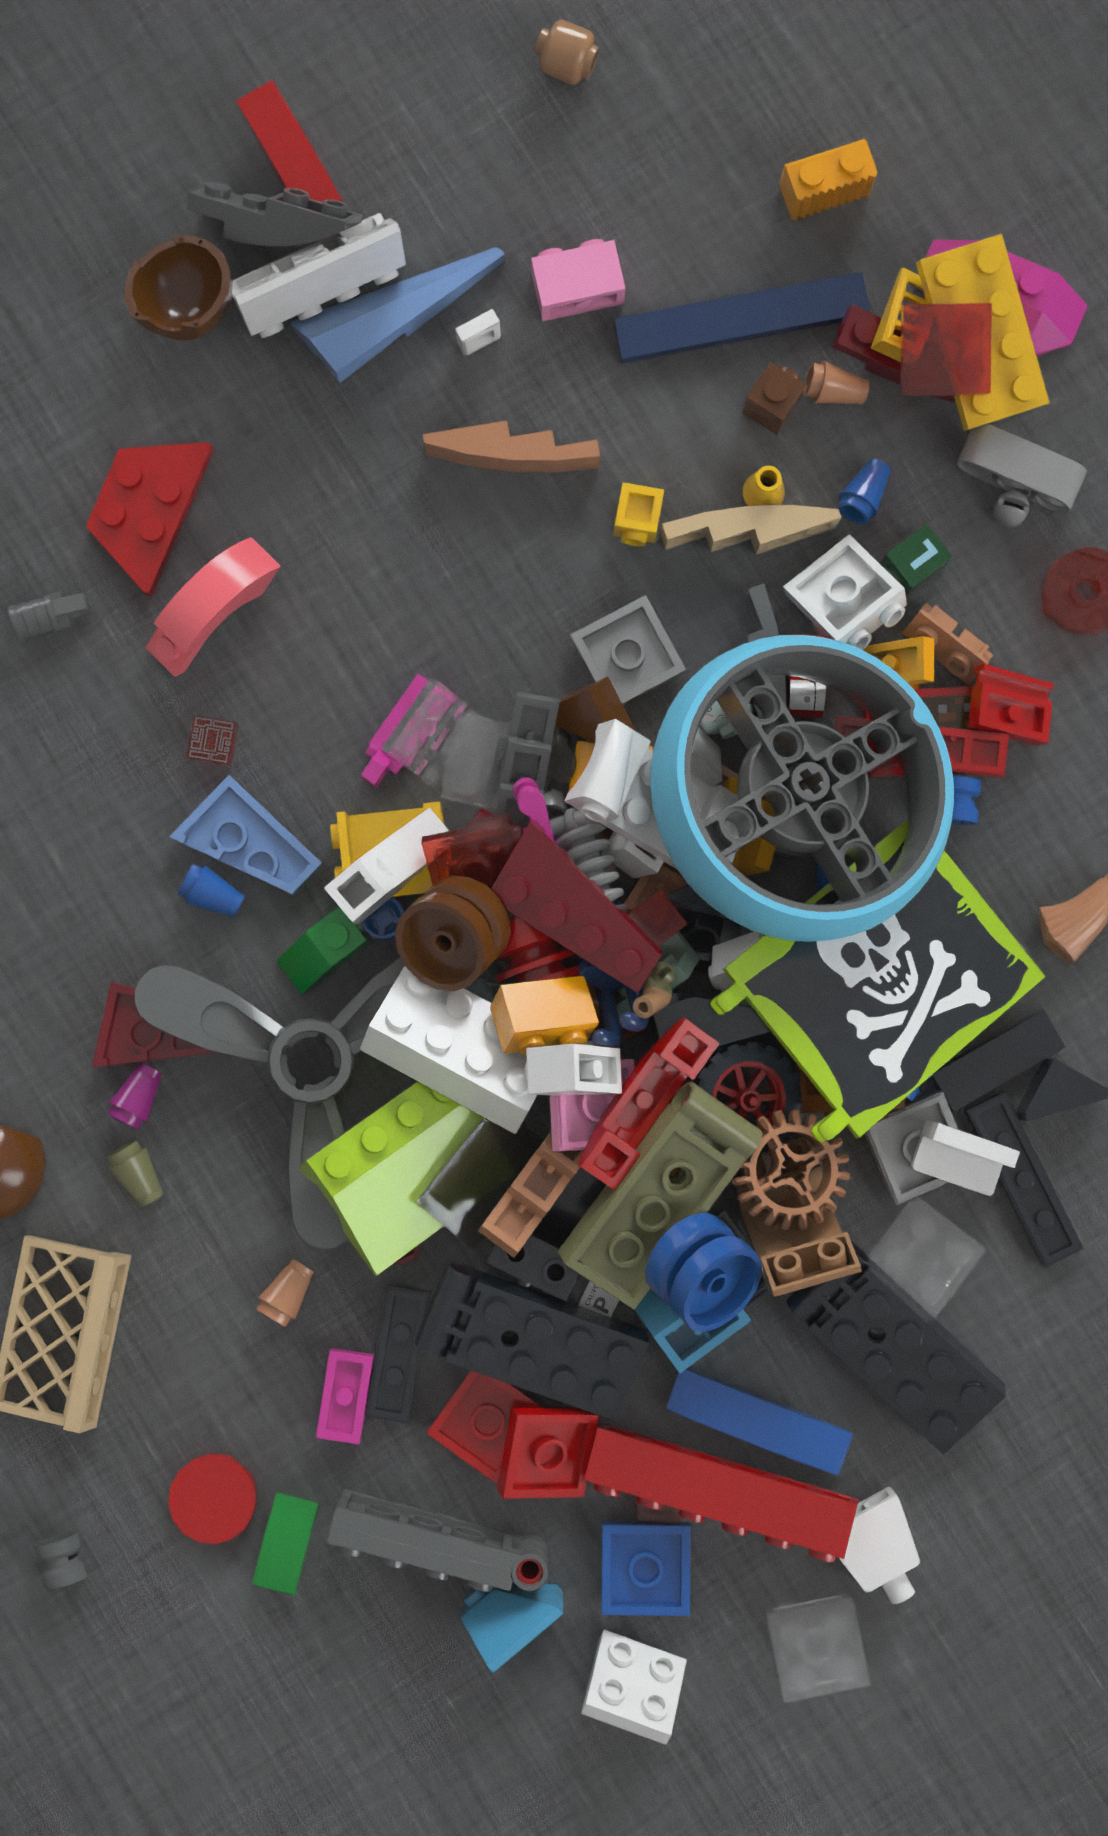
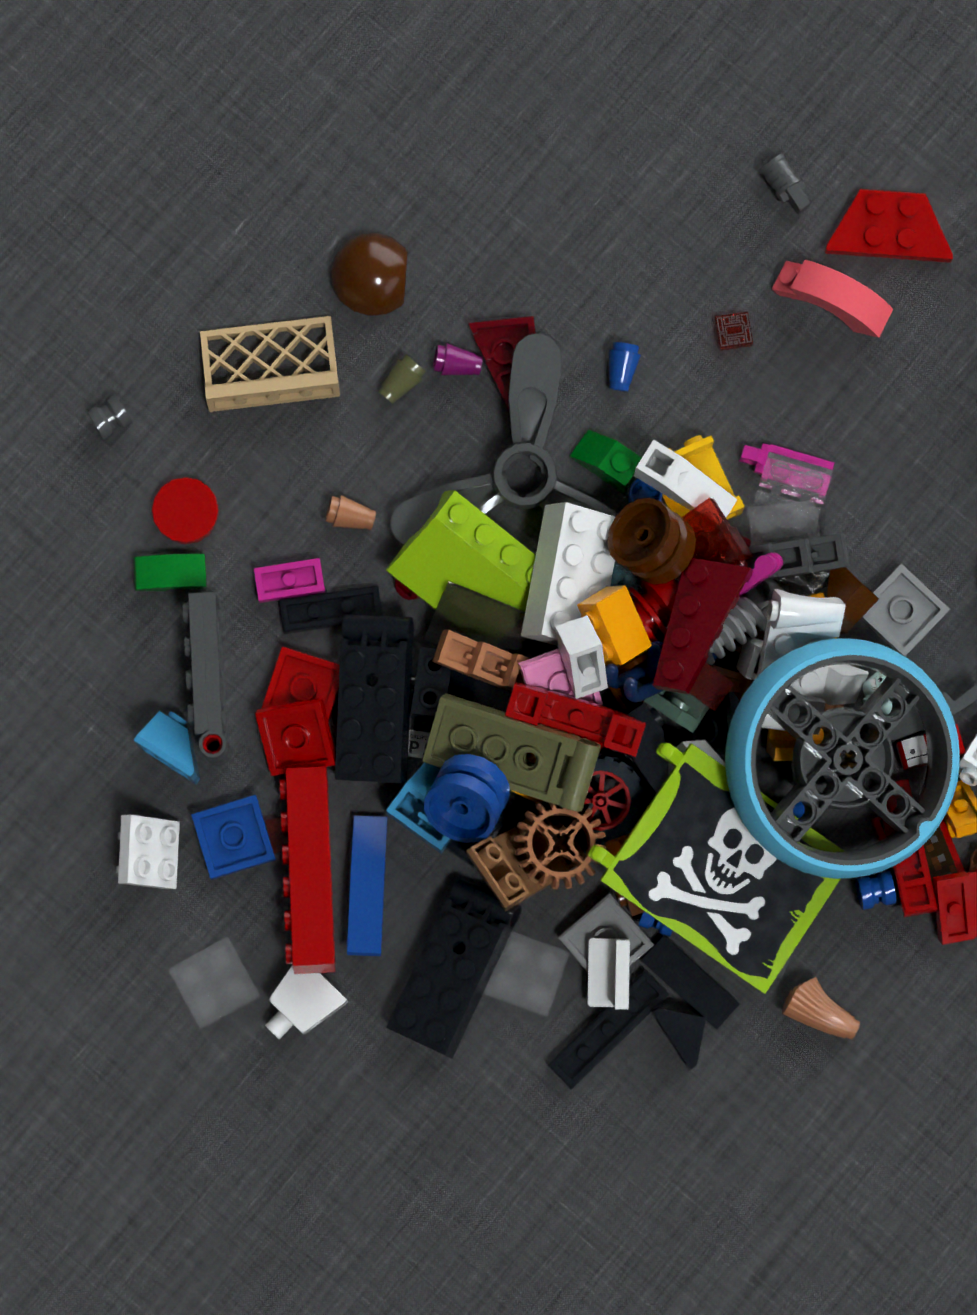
camera: 70 degrees right, 5 degrees down
(247, 837) = (671, 378): medium blue wing -> none
(656, 991) = (658, 701): arm -> none

